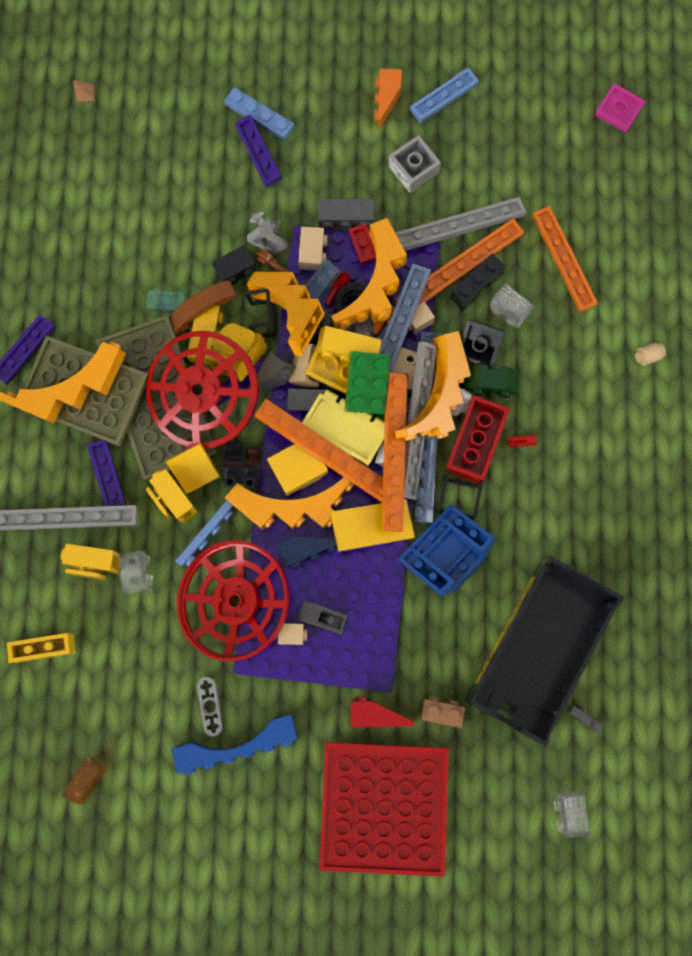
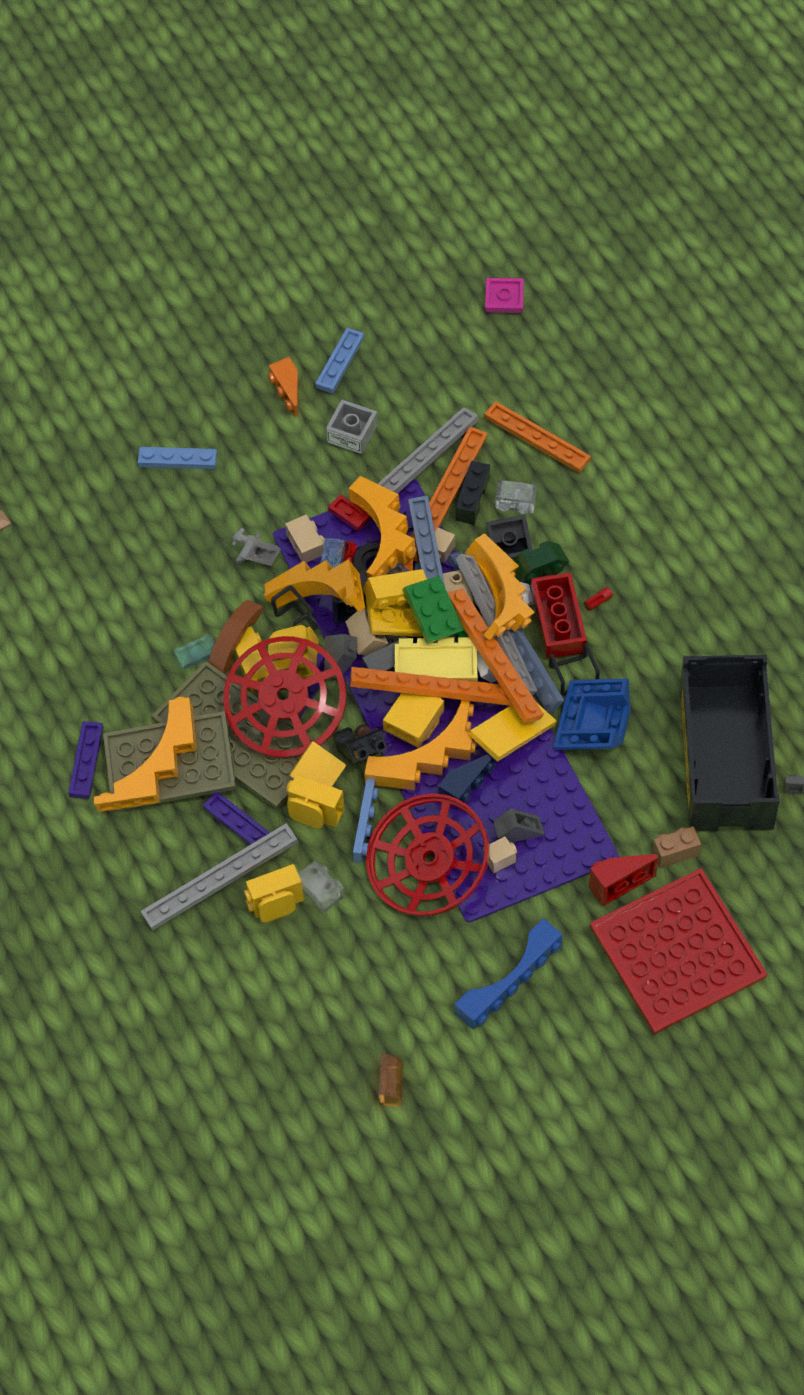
camera: 30 degrees left, 20 degrees down
(41, 648) = (276, 991): yellow brick -> none
(206, 722) = (467, 968): light grey beam -> none
(235, 265) = (241, 587): black brick -> none
(258, 150) = (198, 486): dark purple plate -> none
(265, 258) = (265, 570): dark orange plate -> none
(345, 213) = (315, 496): dark grey brick -> none
(650, 353) = (663, 473): tan brick -> none

